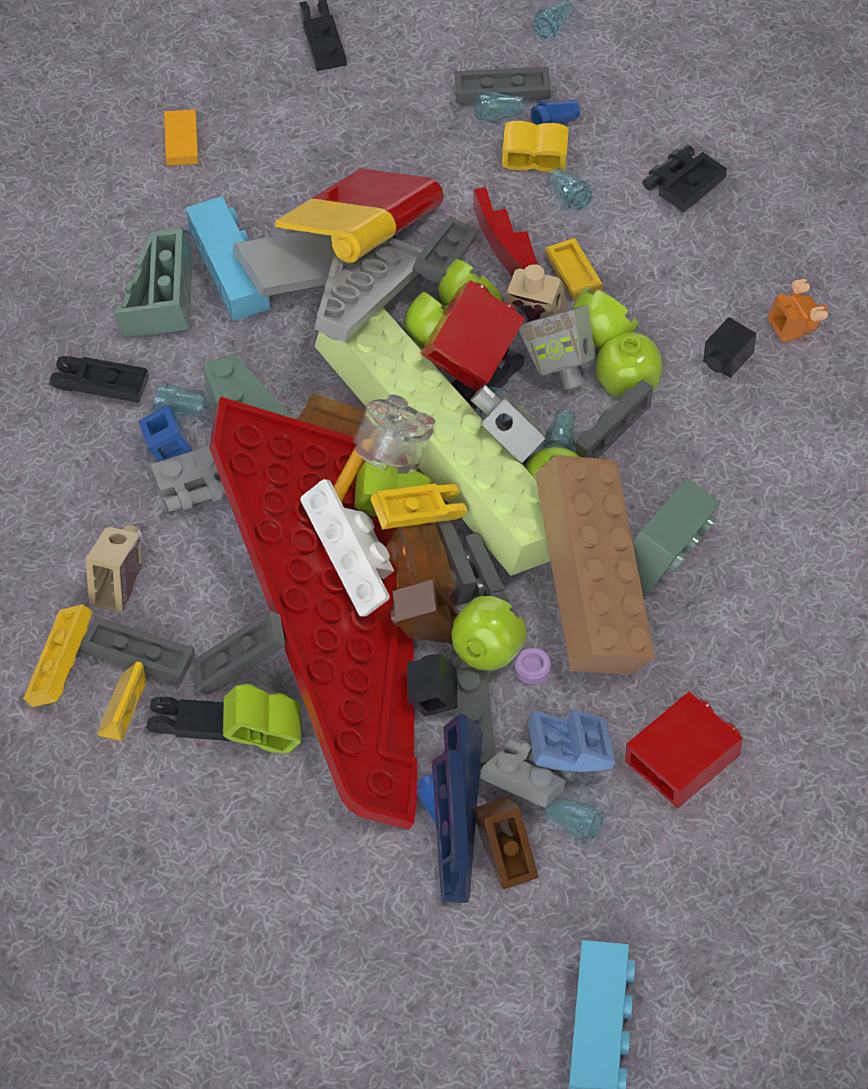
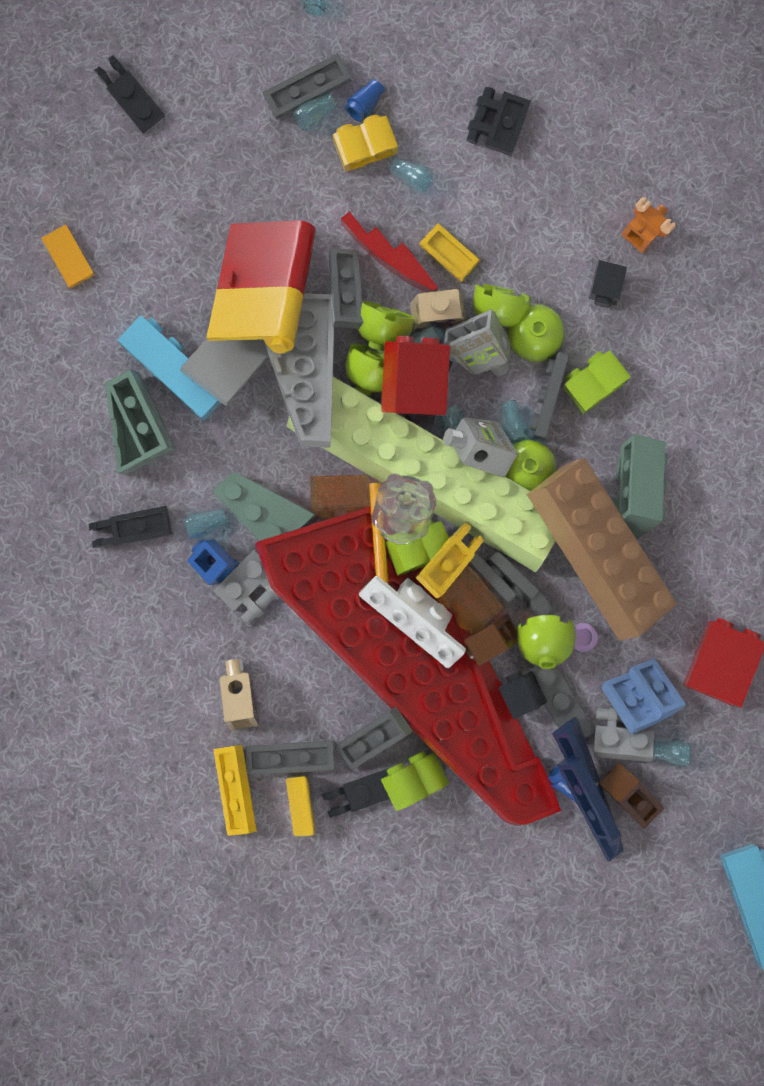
camera: 25 degrees left, 30 degrees up
(672, 429) = (596, 381): none -> lime brick

